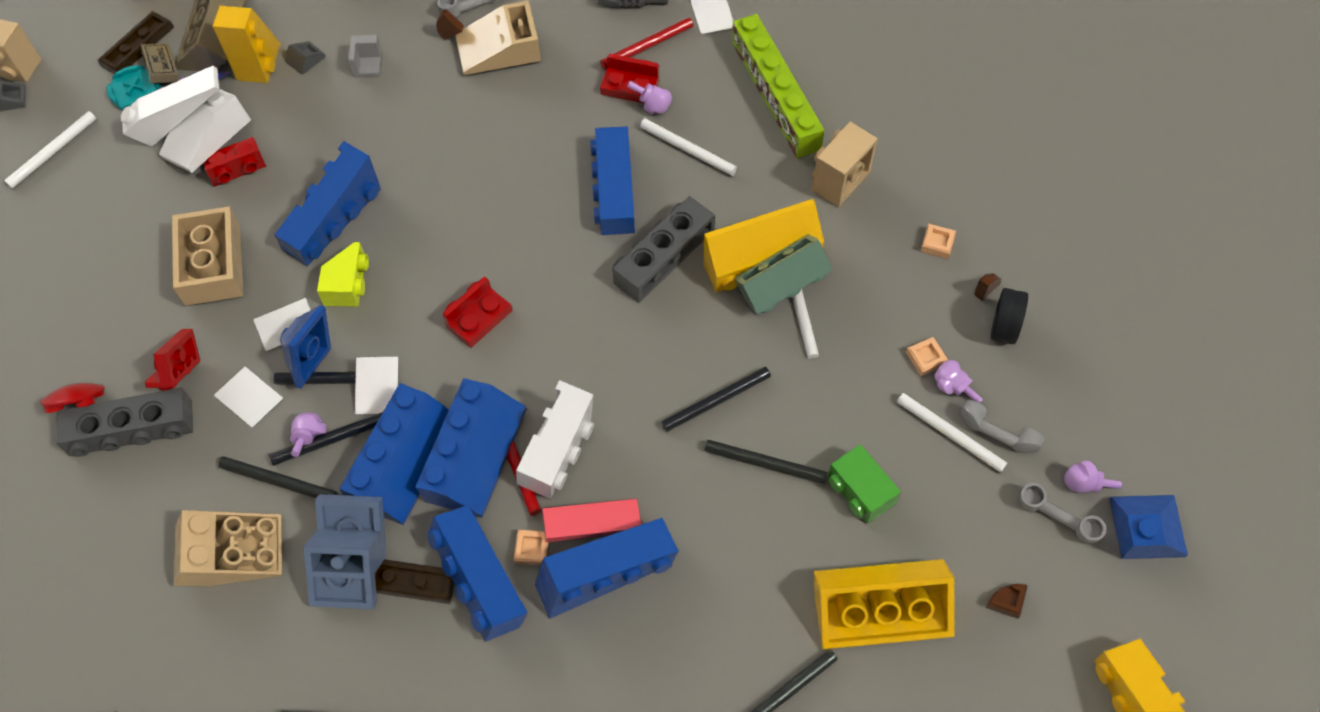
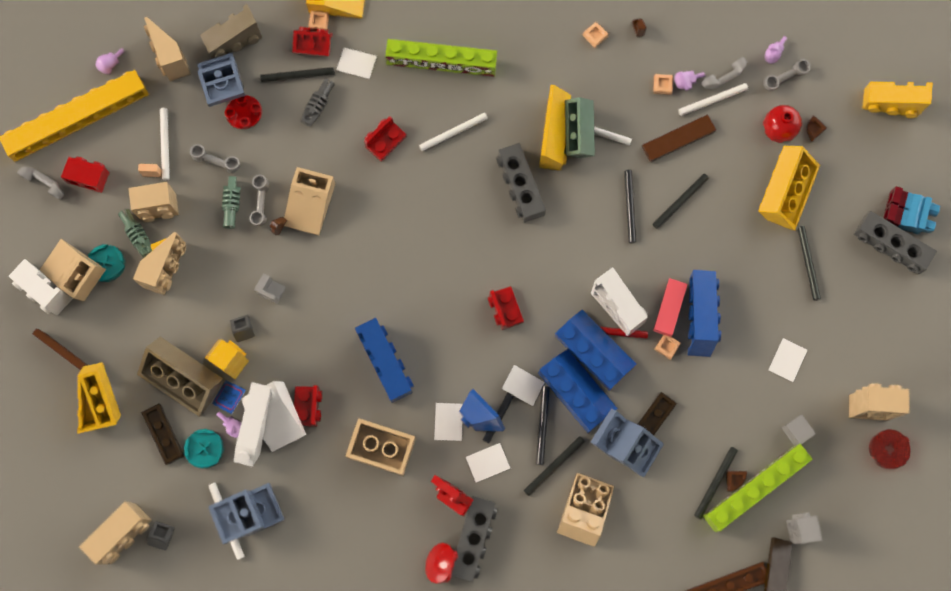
camera: 65 degrees left, 15 degrees up
(59, 154) = (246, 513): none -> sand blue bracket
(159, 63) = (195, 423): dark tan tile -> none
(304, 429) = (532, 436): lavender piece -> none
(342, 277) = (440, 374): neon yellow slope -> none
(476, 573) = (672, 380): blue brick -> none
(614, 181) = (456, 185): blue brick -> none
(652, 40) = (359, 114): red bar -> none
(654, 98) = (409, 132): lavender piece -> none
(843, 163) = (525, 54): tan brick -> none
(860, 414) = (678, 138): none -> reddish brown tile
(863, 484) = (722, 160): bright green brick -> none
(981, 546) = (782, 123): none -> red cylinder
(1009, 316) = (668, 28): black tyre -> none
(1148, 527) = (811, 40): blue slope -> none

